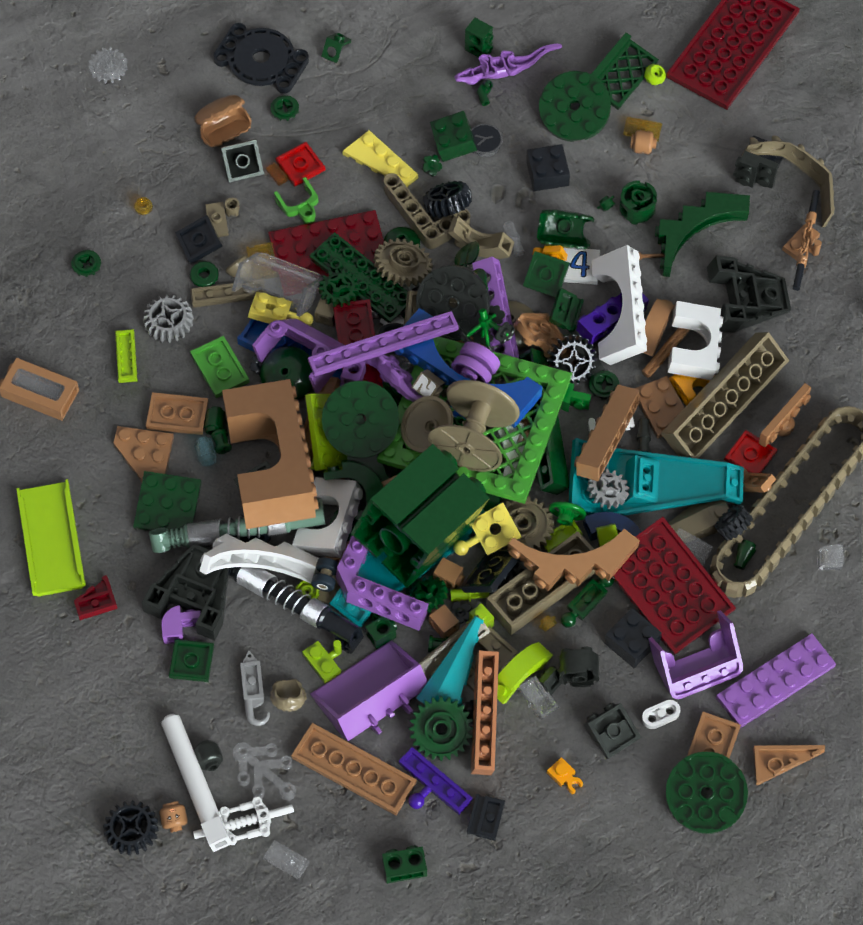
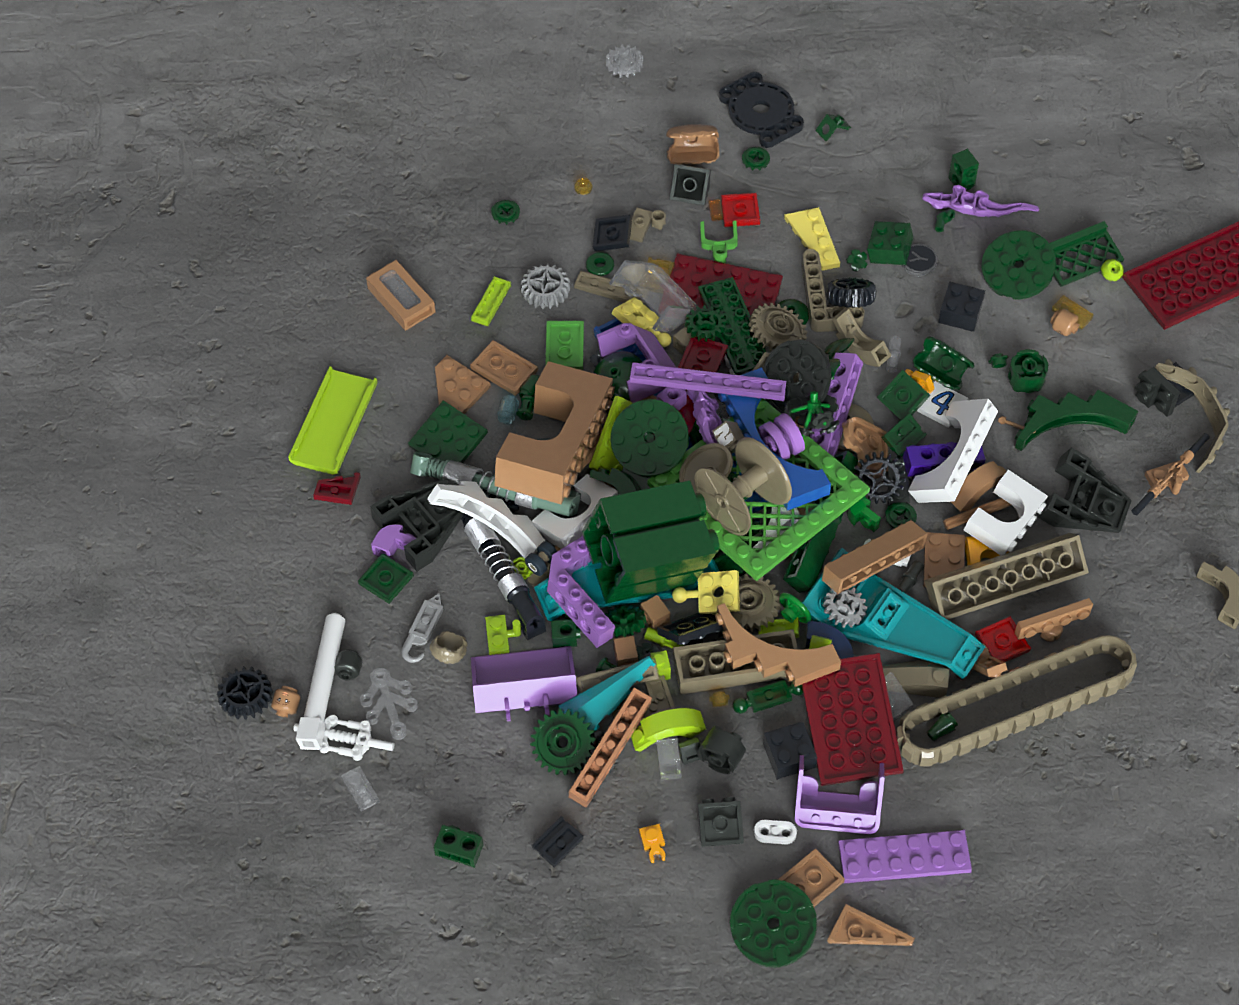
camera: 30 degrees right, 5 degrees down
(354, 769) = (467, 740): medium nougat plate -> none
(434, 782) = (530, 786): dark purple plate -> none
(733, 522) = (942, 689): black tyre -> none
(830, 557) = (1025, 770): clear brick -> none

